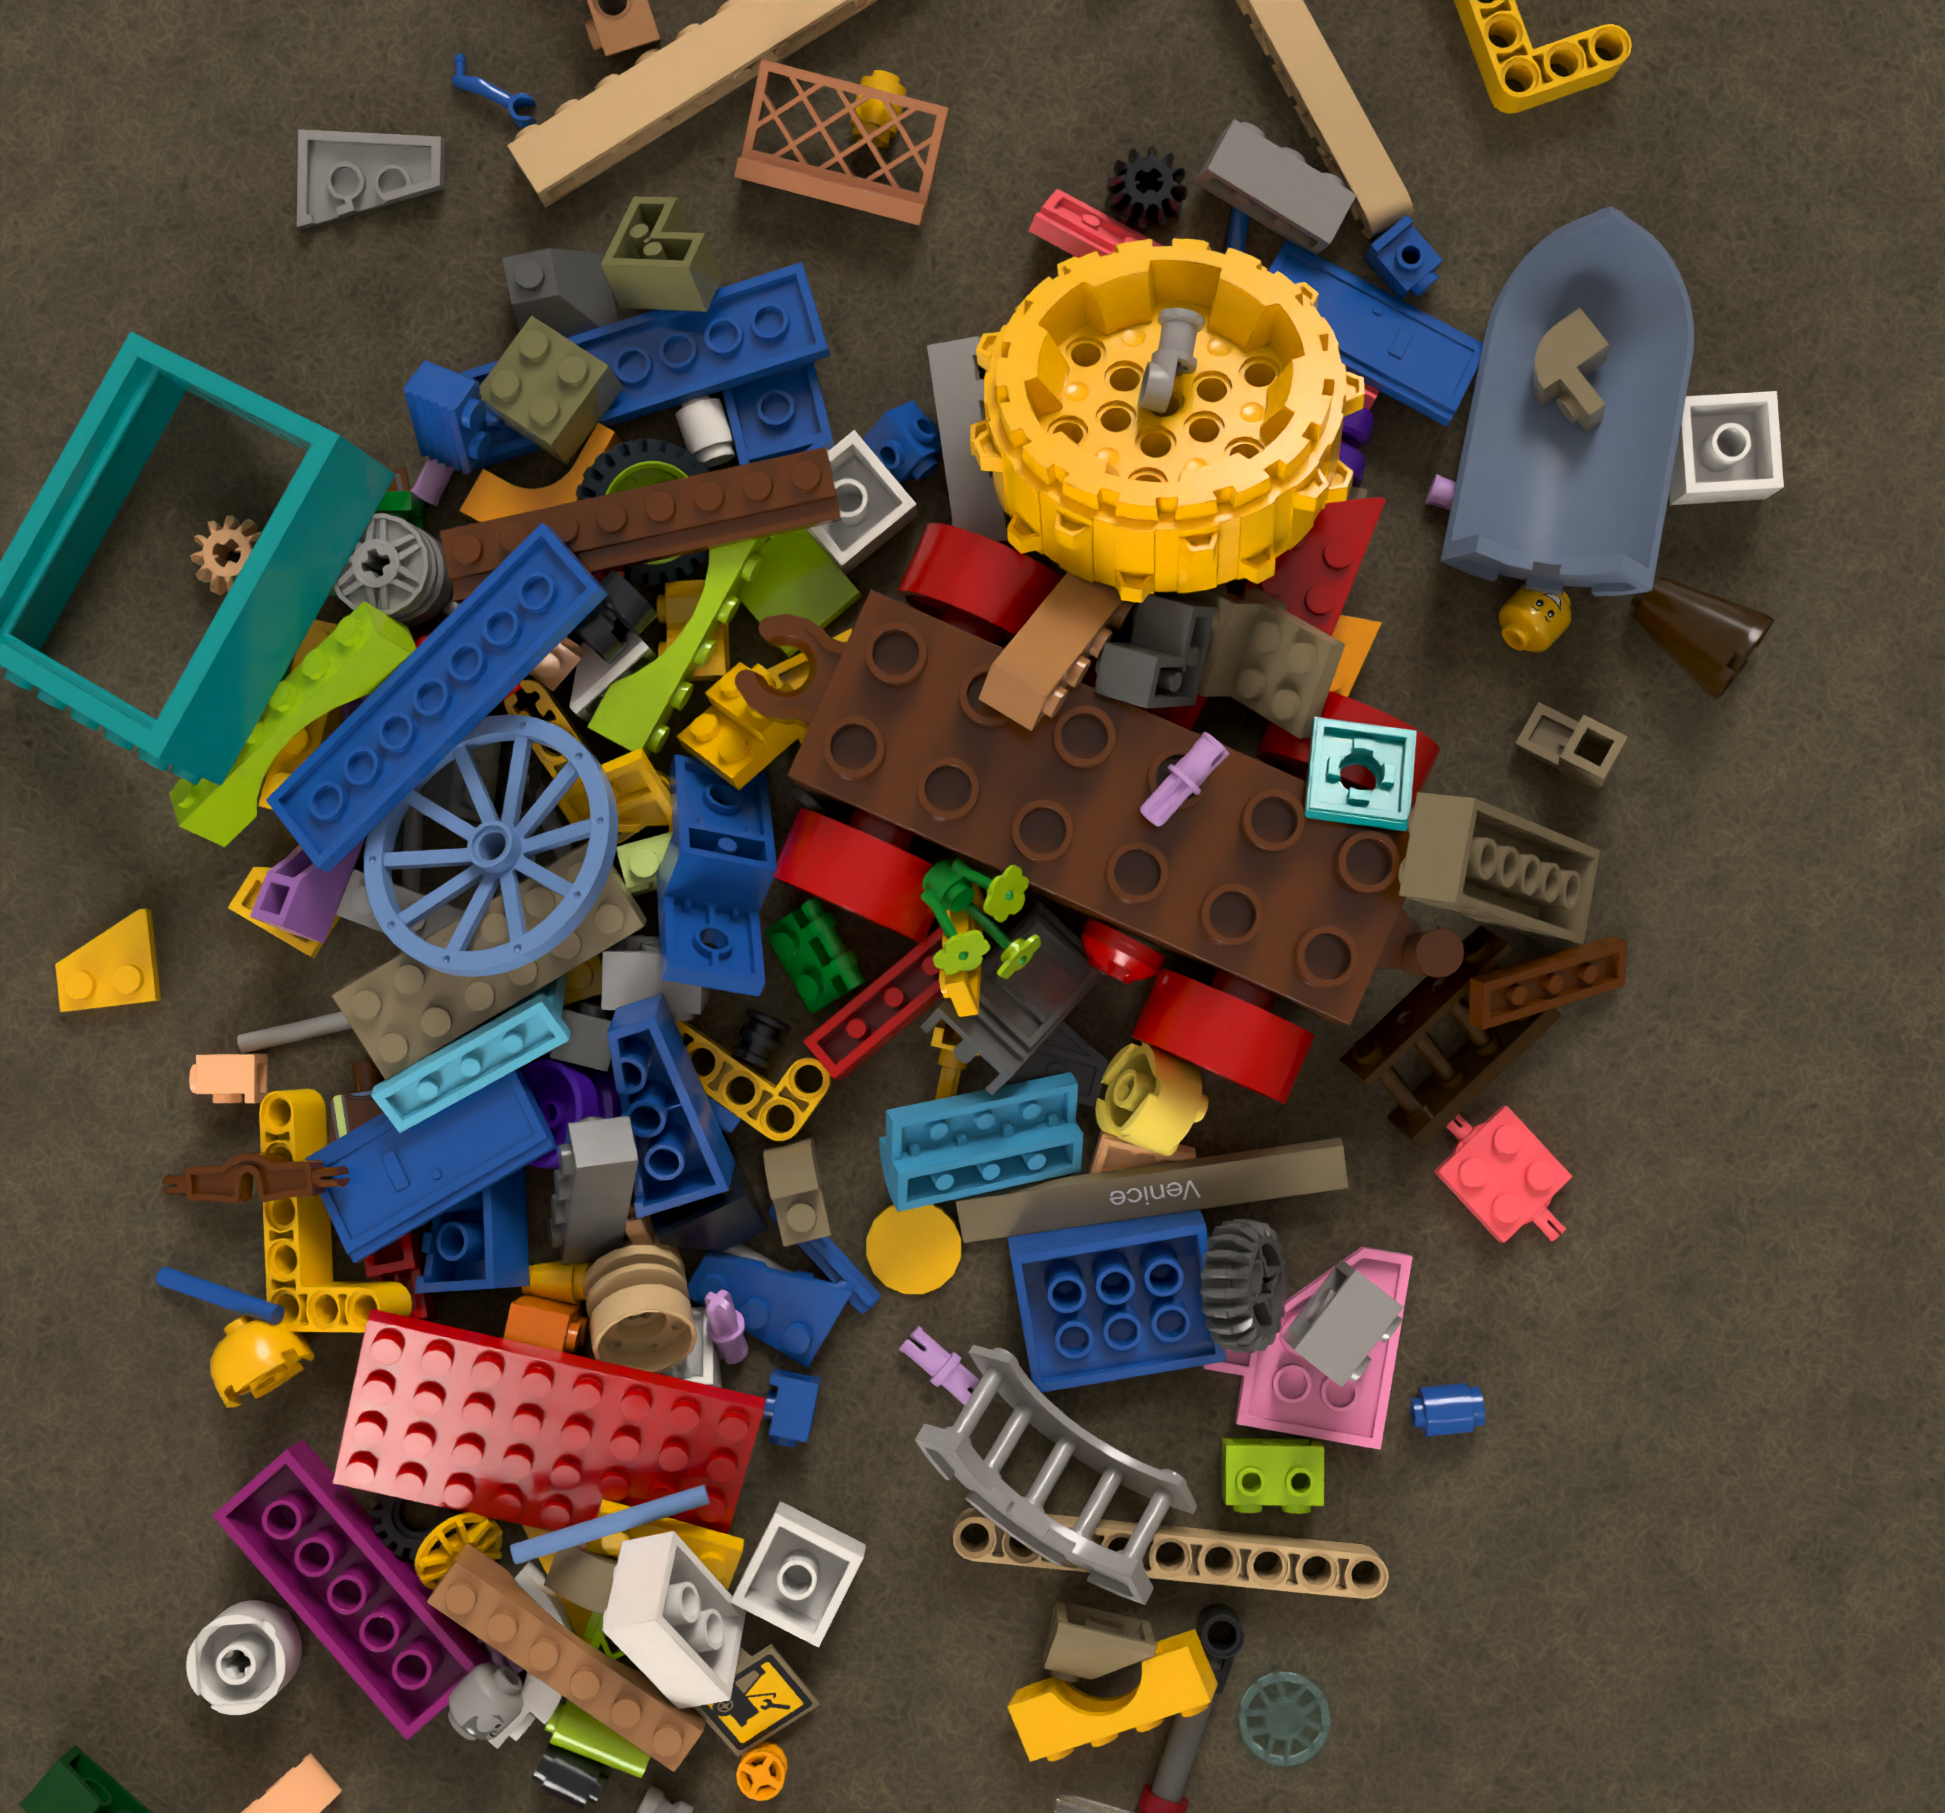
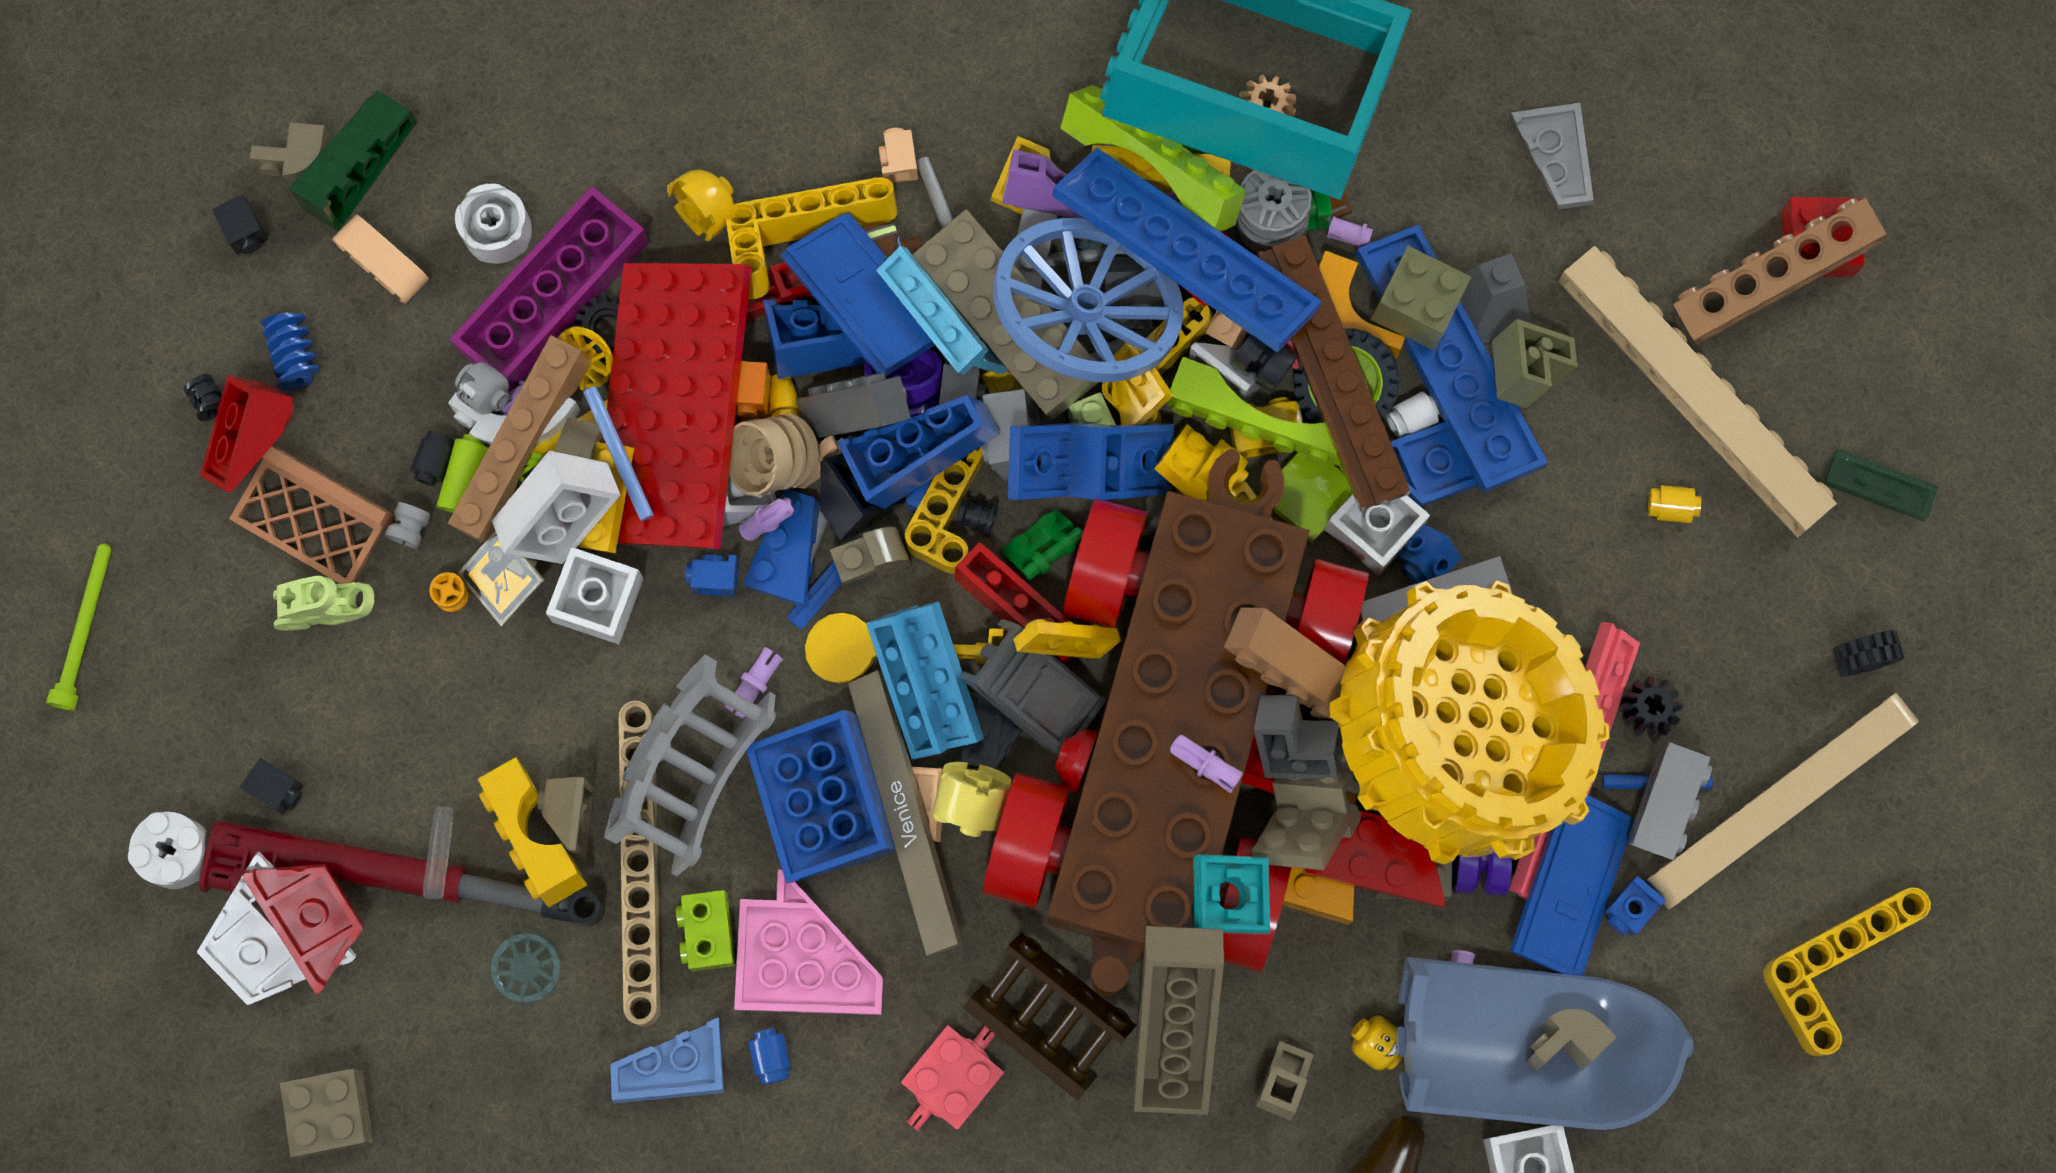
camera: 80 degrees right, 10 degrees down
(112, 967) = (963, 66): yellow wing -> none
(220, 1295) = (744, 170): blue bar -> none
(273, 1178) = (832, 193): reddish brown piece -> none
(448, 417) = (1388, 230): blue brick -> none
(492, 92) = (1636, 225): blue piece -> none
(829, 184) = (1610, 485): nougat fence -> none
(950, 887) = (1105, 619): plant -> none
(1171, 358) = (1512, 714): light grey connector -> none
(1243, 1285) = (844, 885): dark grey gear -> none
(1343, 1324) = (825, 957): light grey brick -> none
(1444, 1537) = (677, 1068): none -> medium blue wing
(1547, 982) = (1101, 1082): reddish brown plate -> none

